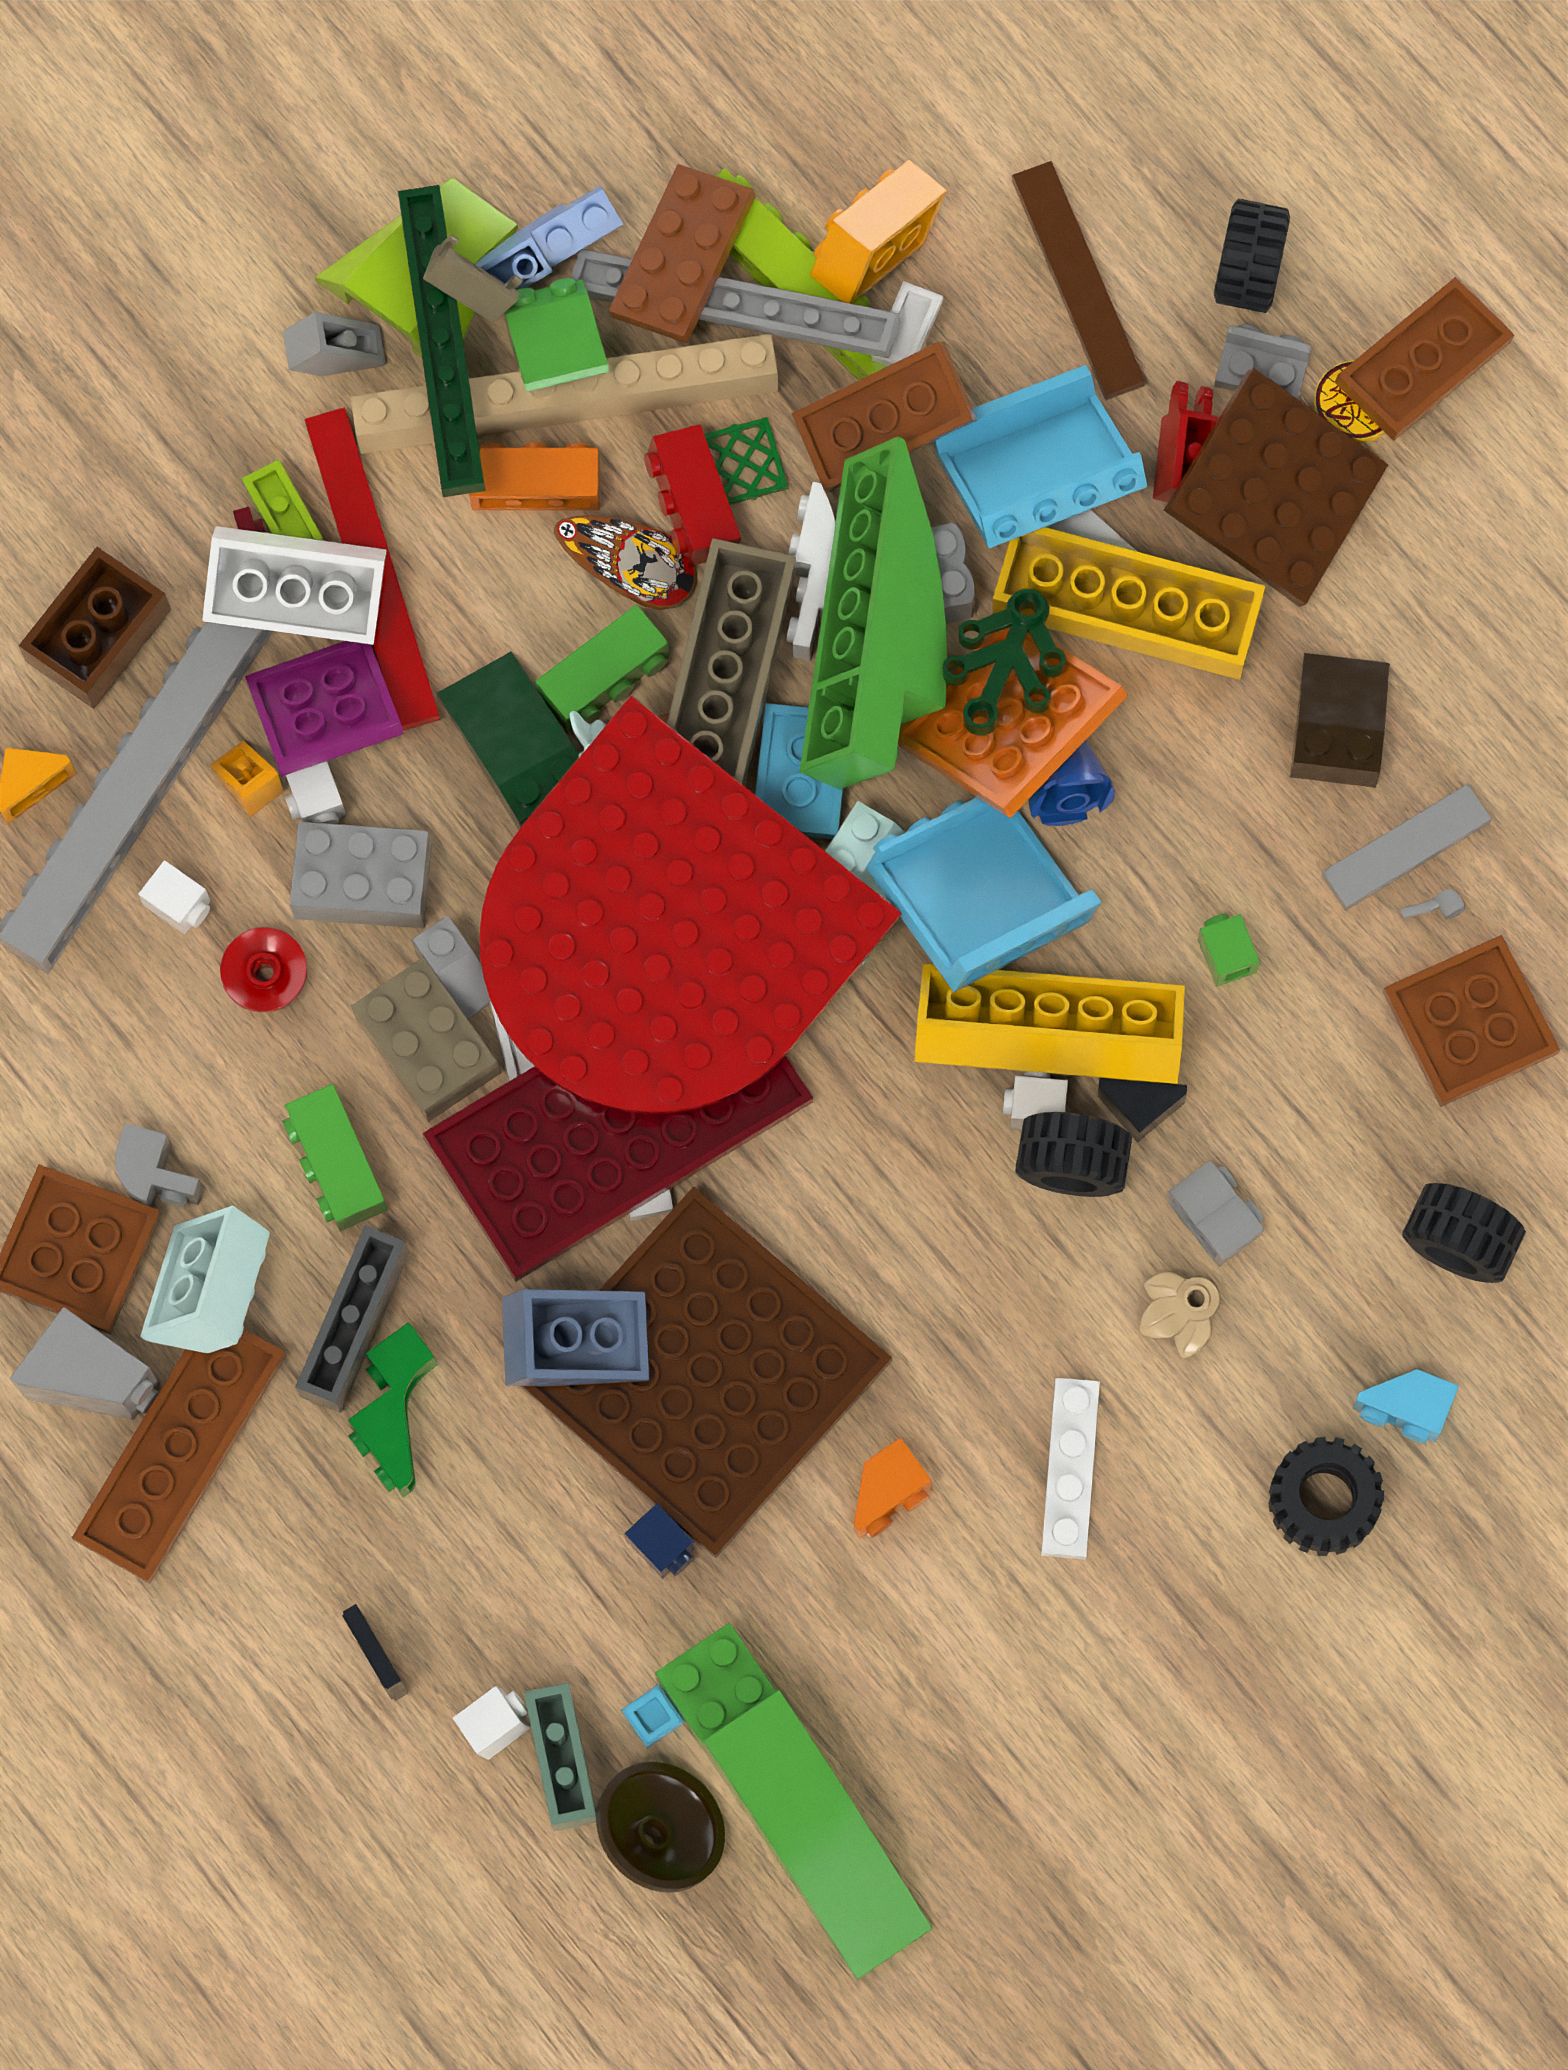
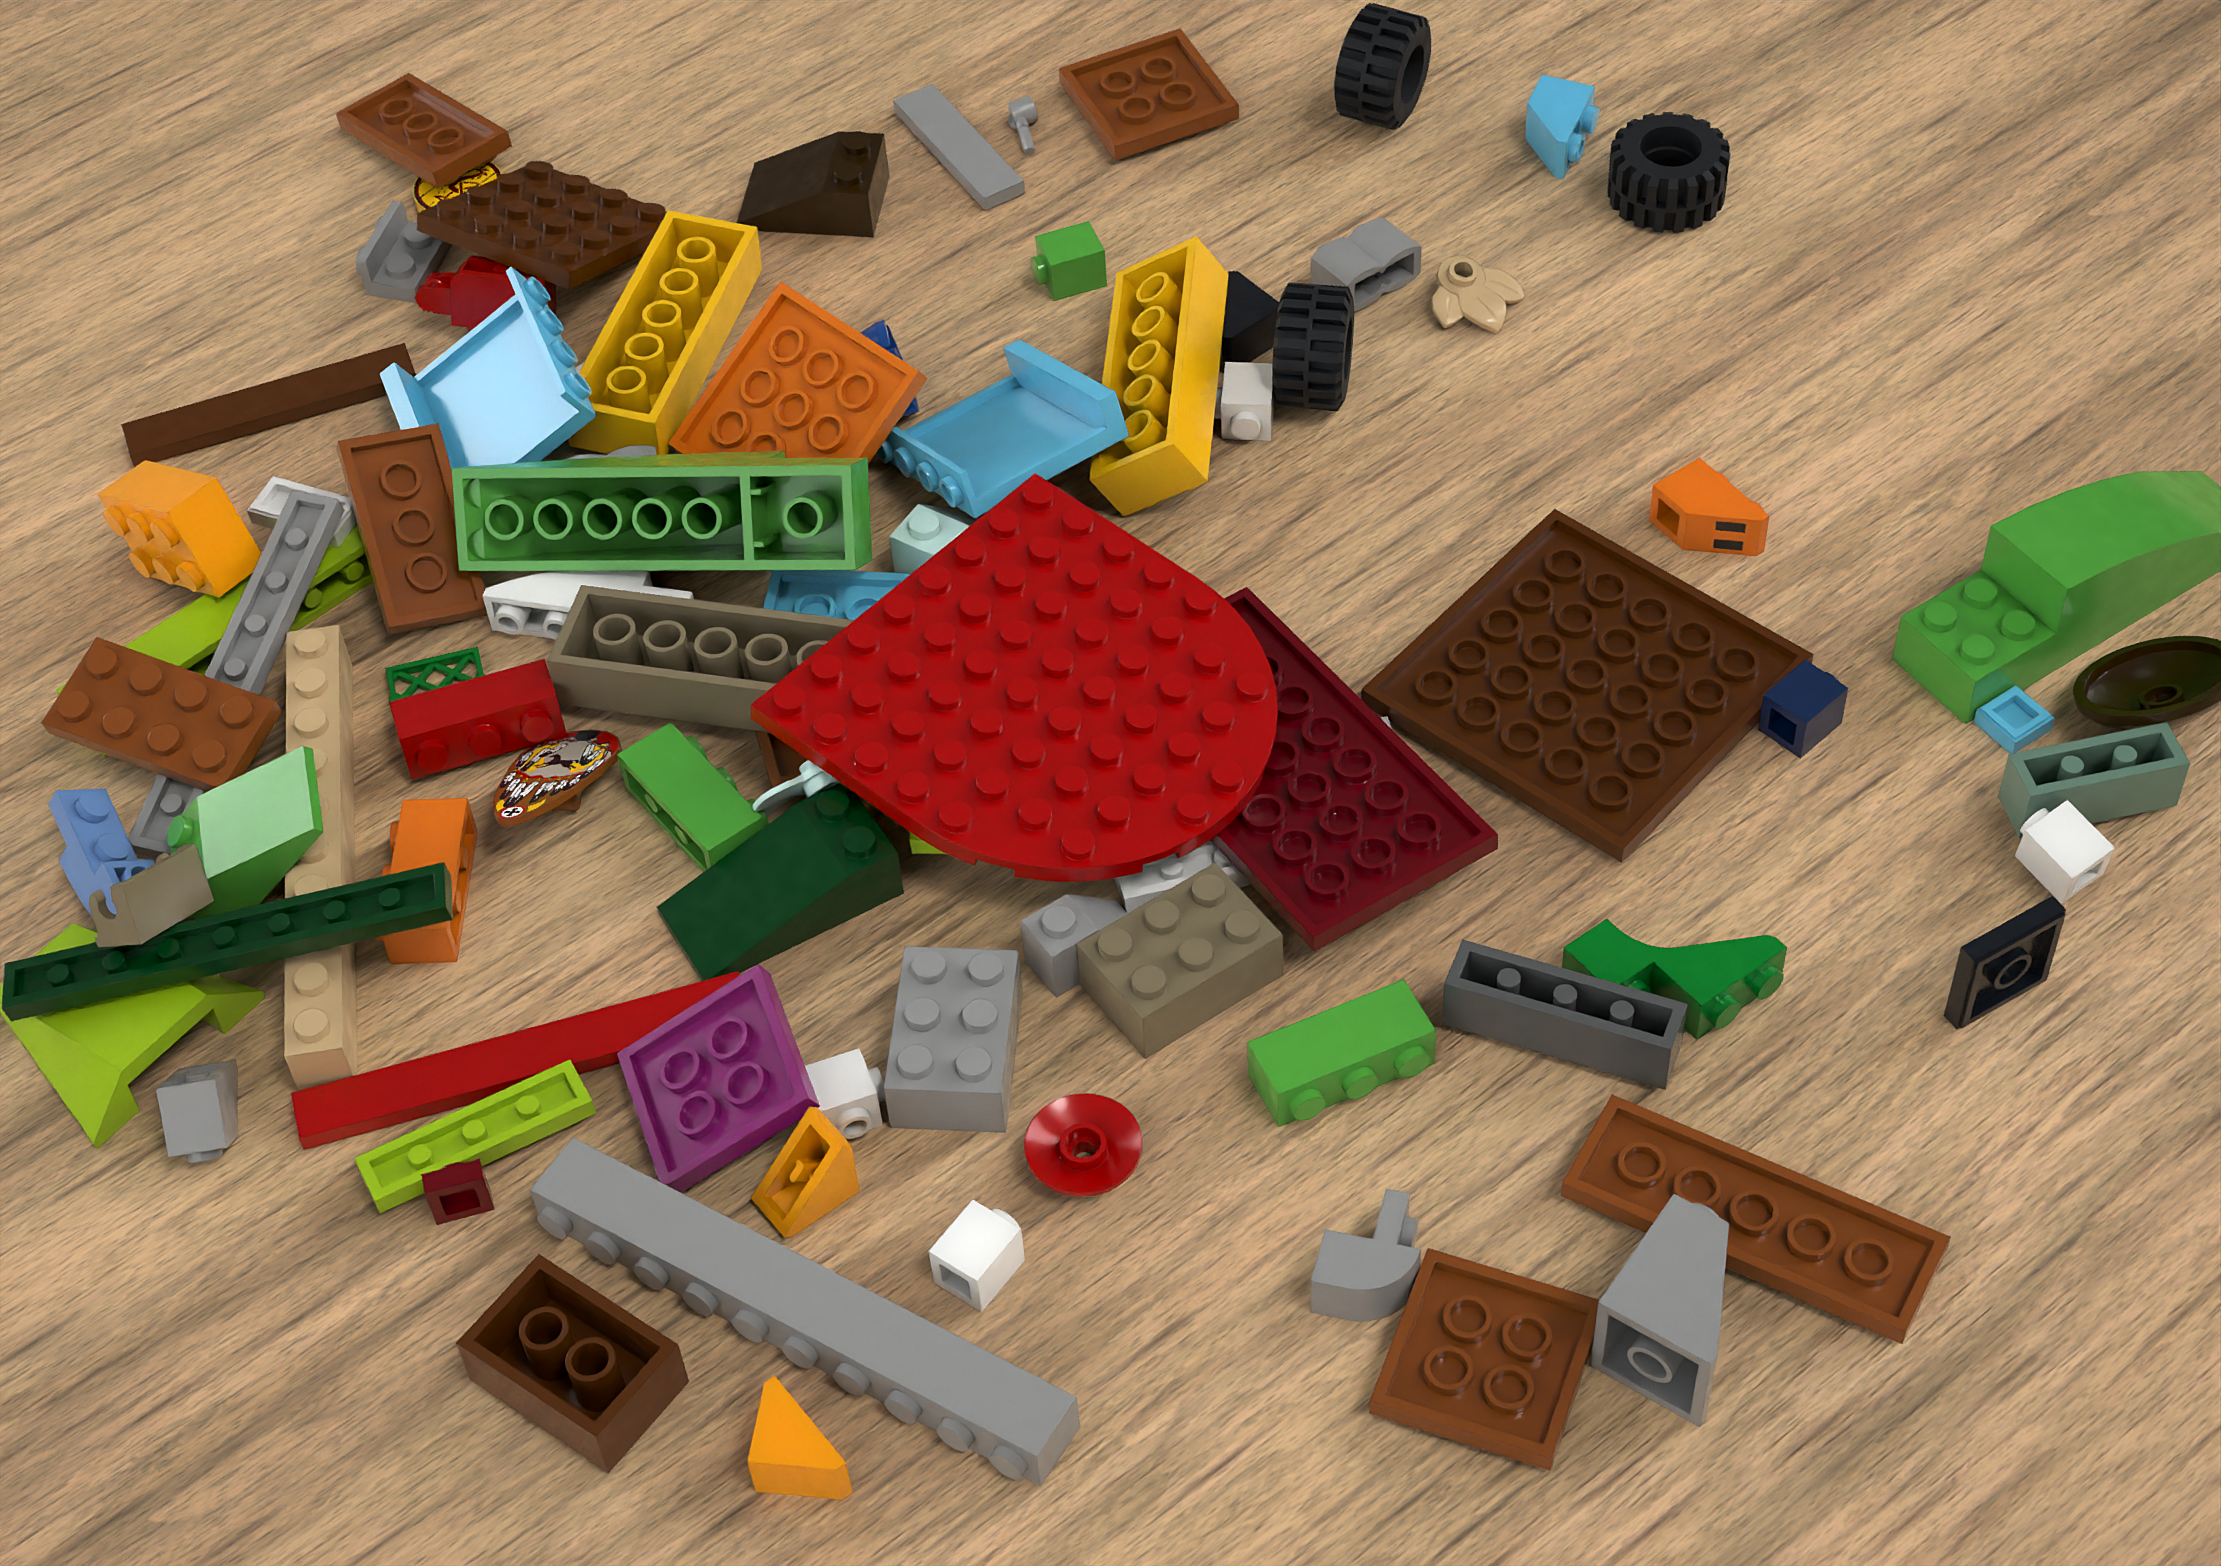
camera: 90 degrees left, 25 degrees down
(206, 1282) = (1530, 1177): light aqua slope -> none
(293, 585) = (545, 1103): white slope -> none
(574, 1337) = (1570, 782): sand blue slope -> none
(1006, 655) = (679, 382): dark green plant -> none
(1070, 1468) = (1659, 376): white plate -> none
(1251, 255) = (281, 236): black tyre -> none

